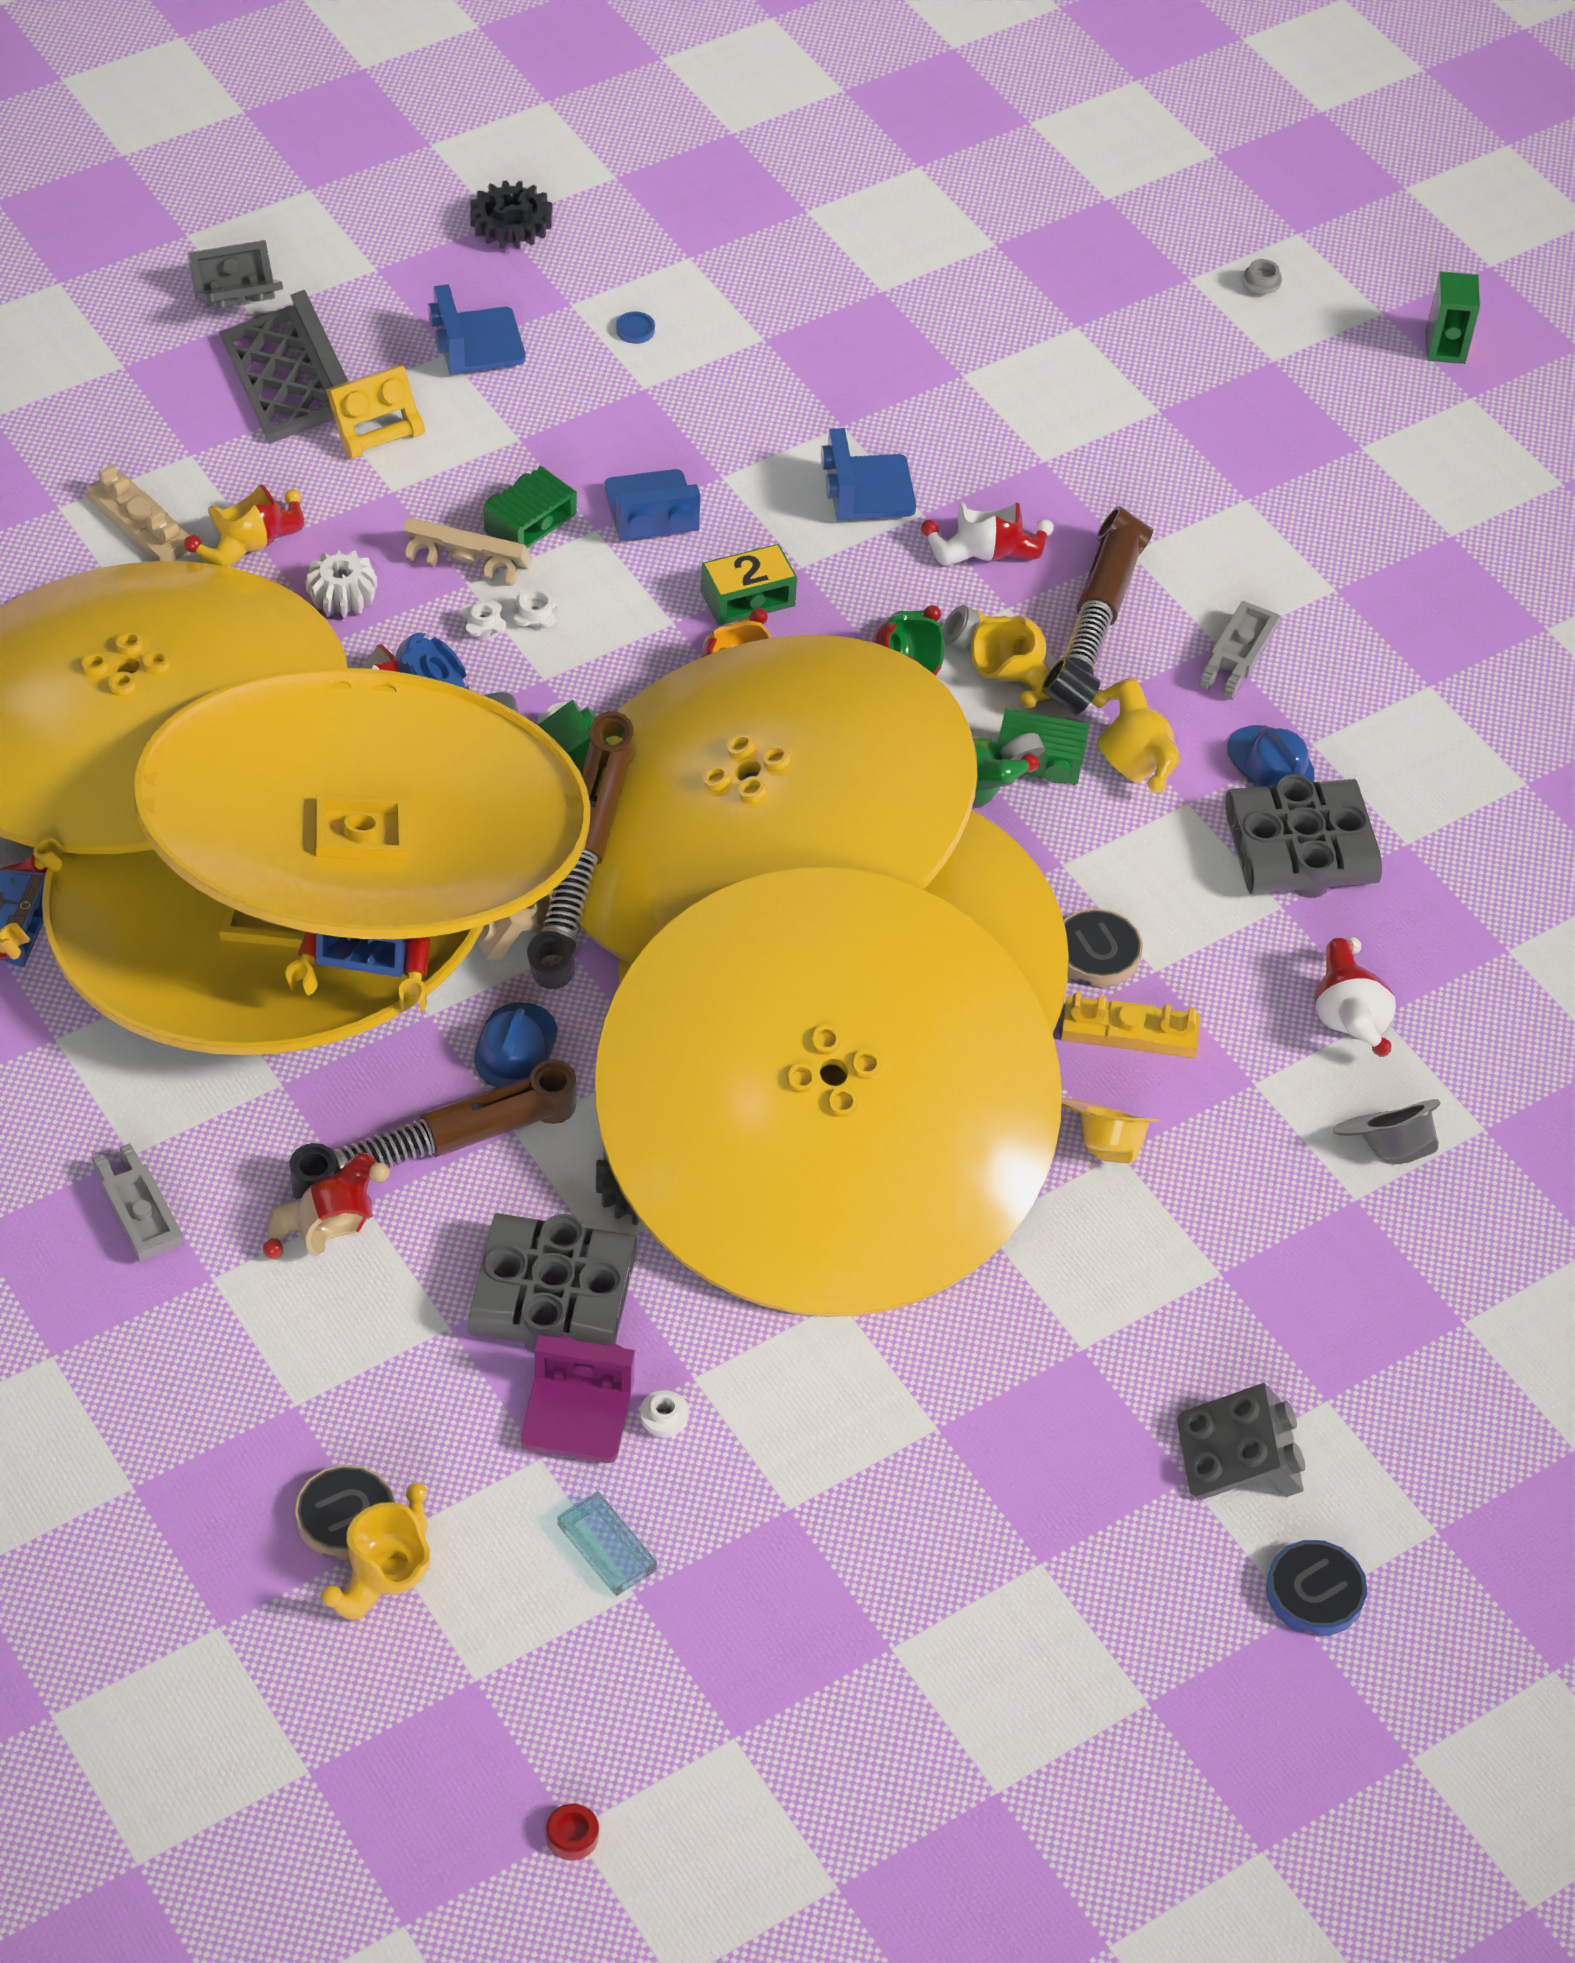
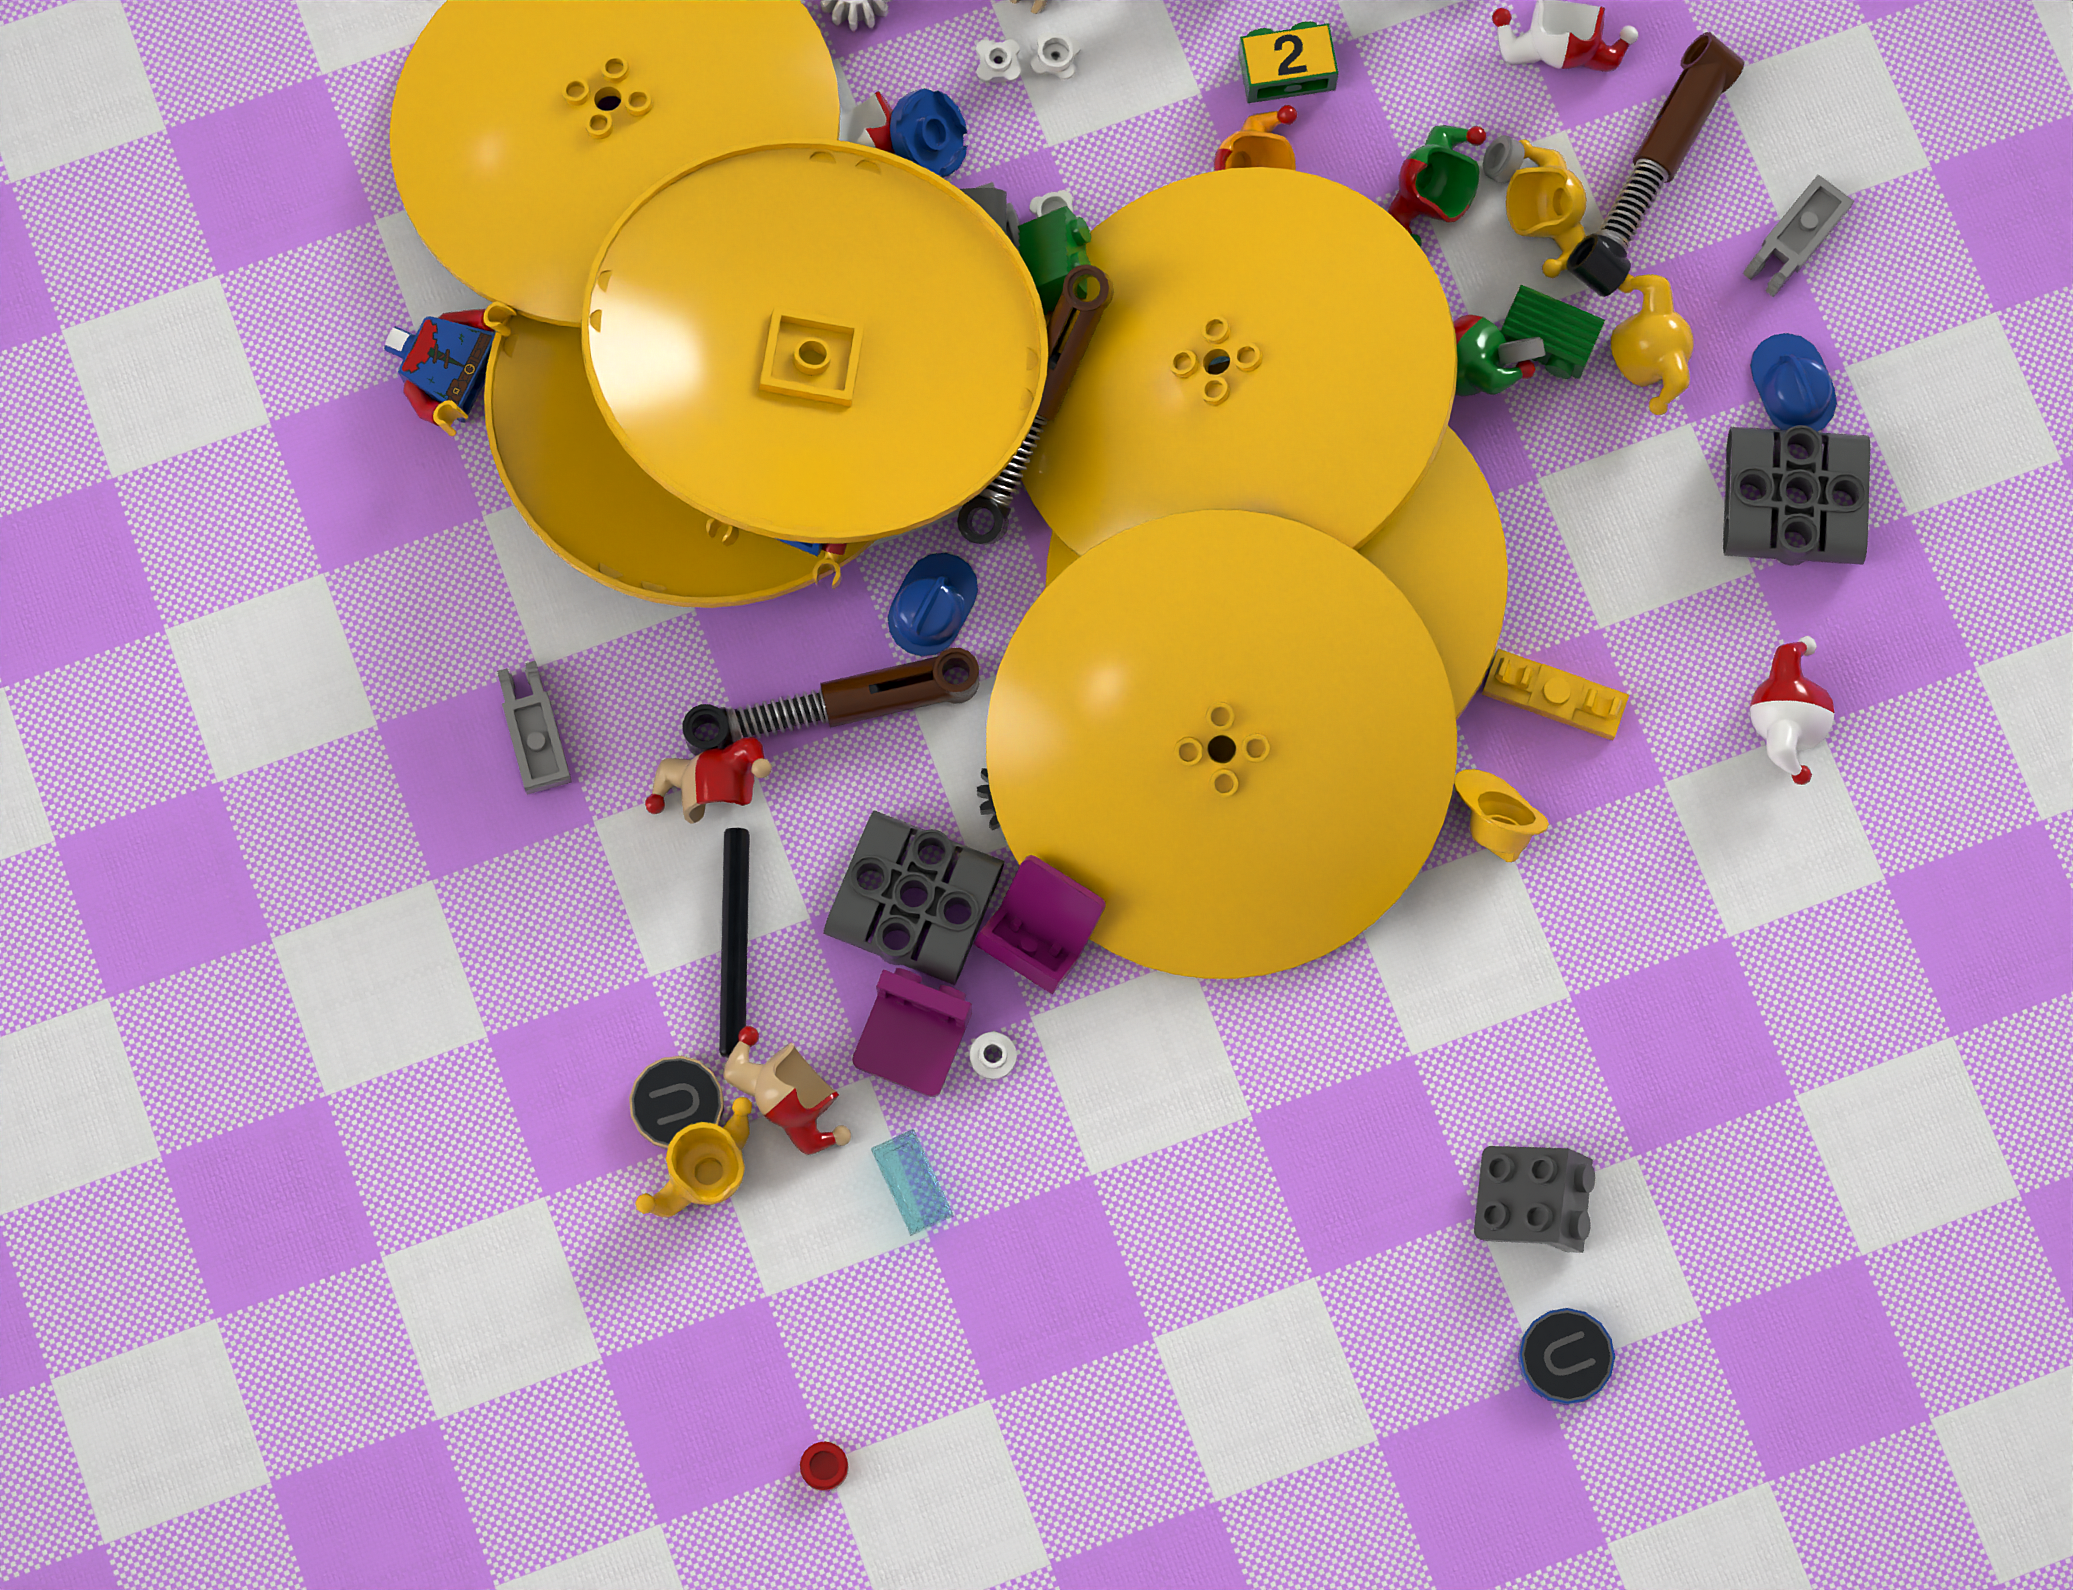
camera: 15 degrees right, 25 degrees up
(378, 1359) = (734, 938): none -> black axle
(458, 1477) = (786, 1092): none -> tan piece
(689, 1277) = (1041, 924): none -> magenta bracket
(1102, 947) = (1548, 592): black tile -> none
(1397, 1134) = (1787, 872): dark grey piece -> none

